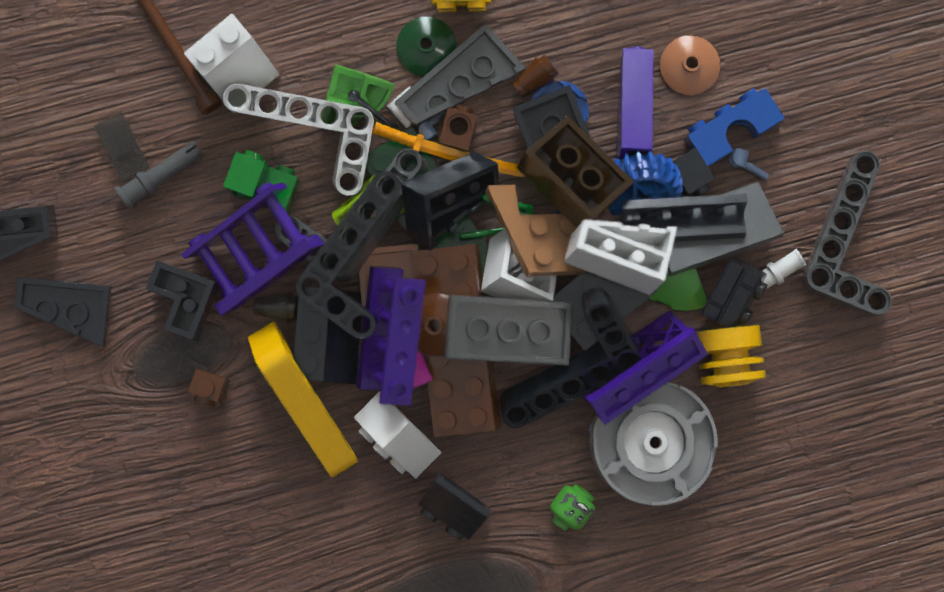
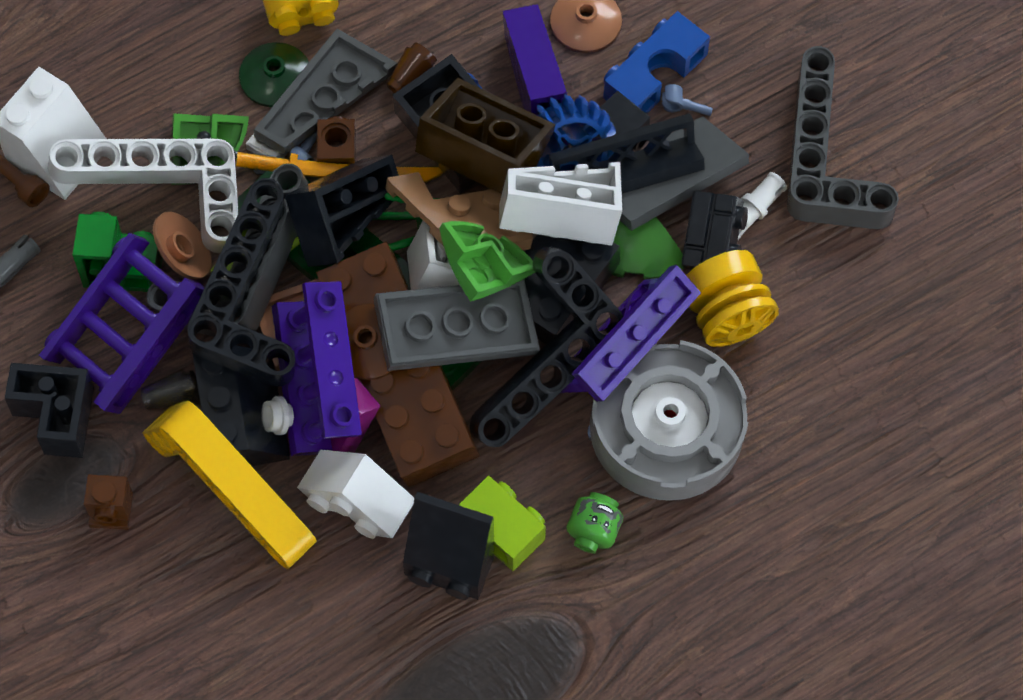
camera: 10 degrees left, 20 degrees down
(313, 187) = (181, 245): none -> nougat dish
(352, 356) = (277, 415): none -> white plate
(502, 486) = (516, 528): none -> lime brick
(543, 286) = (483, 261): none -> bright green brick

